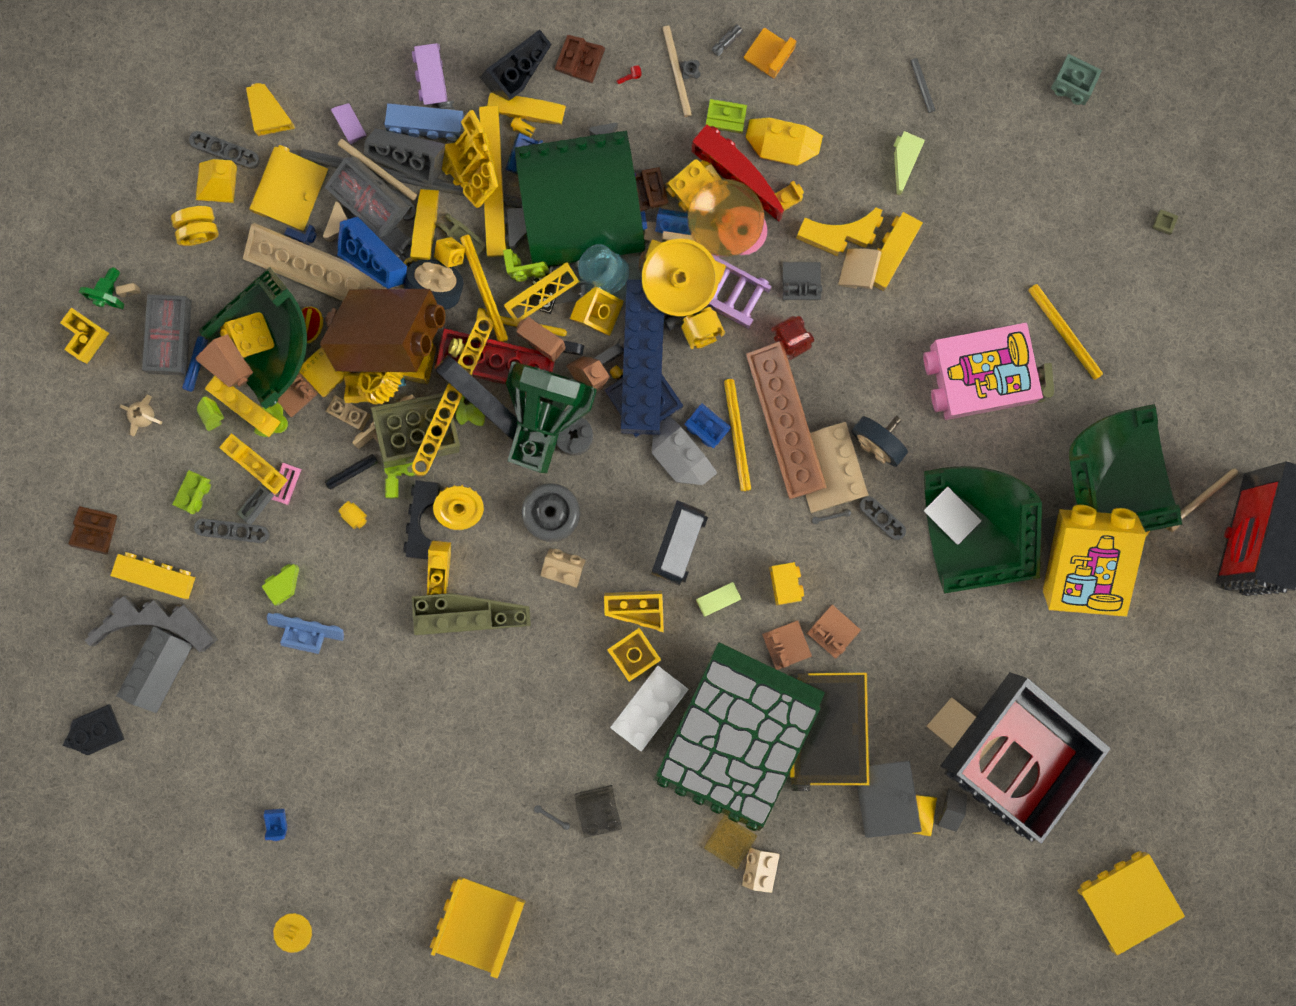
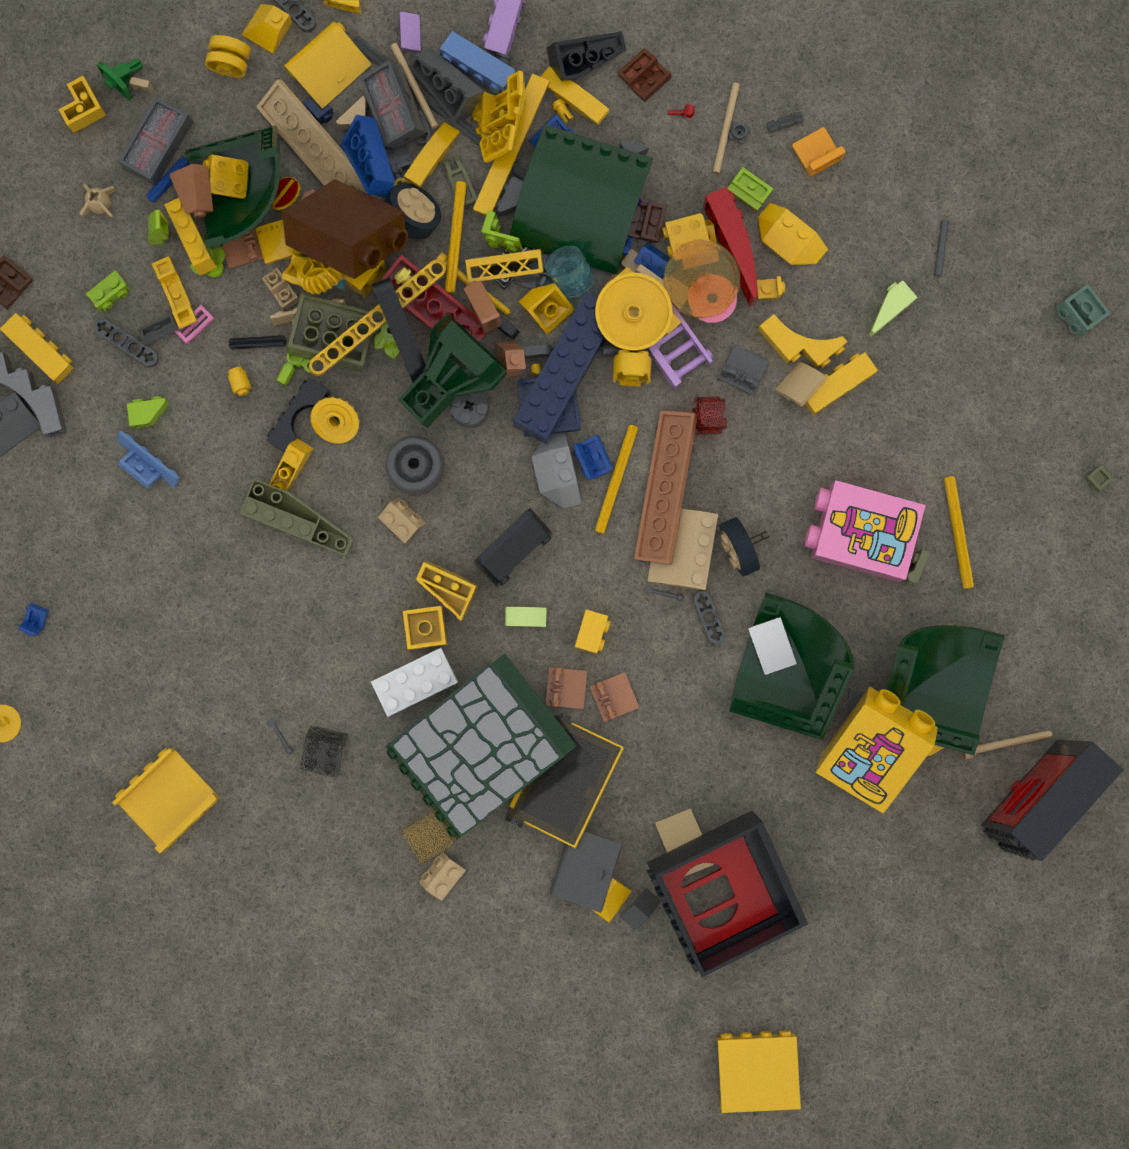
camera: 25 degrees right, 0 degrees up
(449, 252) = (441, 189): yellow brick -> none

